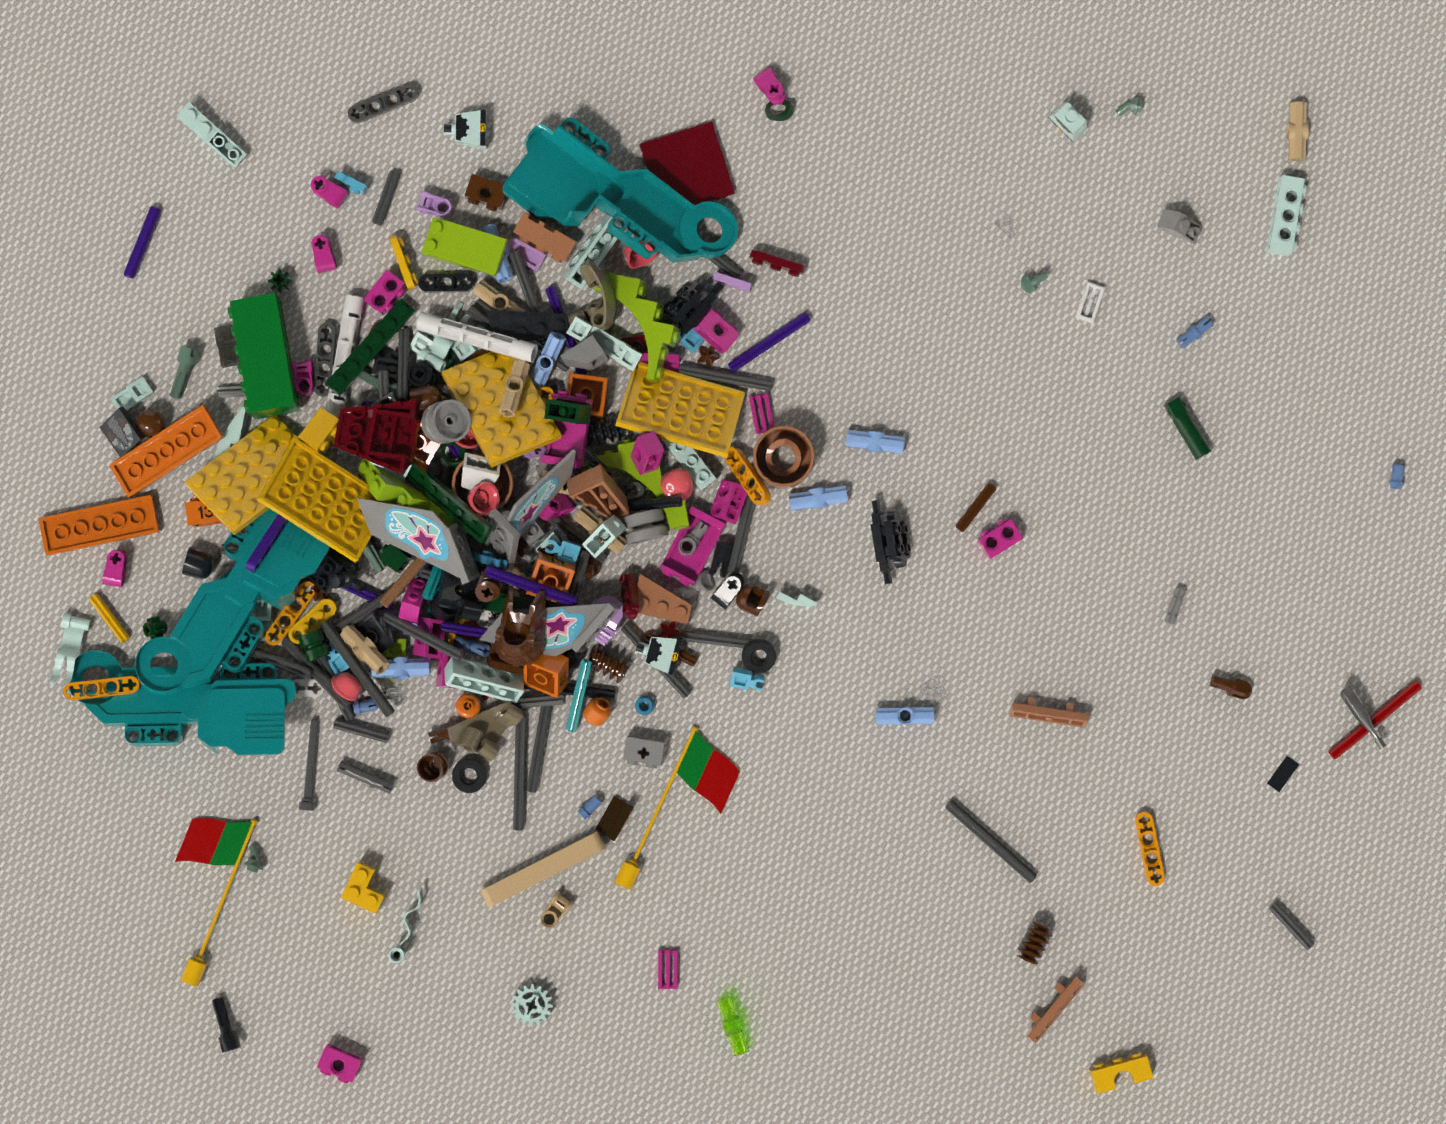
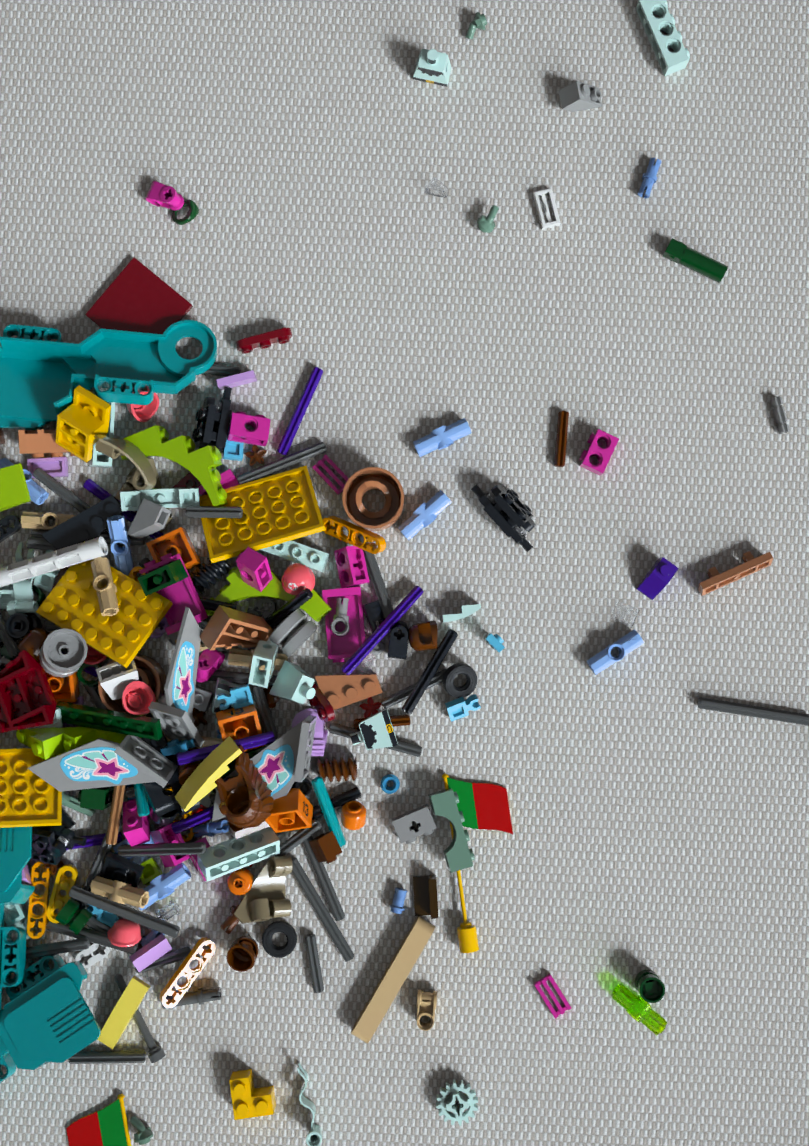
camera: 30 degrees left, 0 degrees up
(264, 781) = (103, 1057): none -> dark grey axle
(301, 752) = (123, 1012): none -> light yellow slope
(356, 717) = (150, 952): none -> lavender tile
(377, 755) = (189, 973): none -> beam
(485, 814) = (314, 963): none -> dark grey axle
(497, 598) = (205, 775): none -> light yellow slope
(557, 723) = (325, 847): none -> reddish brown brick
(581, 241) = (81, 422): none -> yellow bracket
(617, 569) = (293, 684): none -> light aqua torso
(643, 383) = (214, 512): none -> dark grey axle
(665, 799) = (457, 854): none -> sand green arch
(720, 571) = (382, 630): none -> dark purple axle
(738, 632) = (429, 671): none -> black axle
(754, 1011) = (649, 986): none -> dark green wheel
(809, 642) = (495, 641): none -> medium azure plate
(980, 676) = (657, 578): none -> dark purple slope

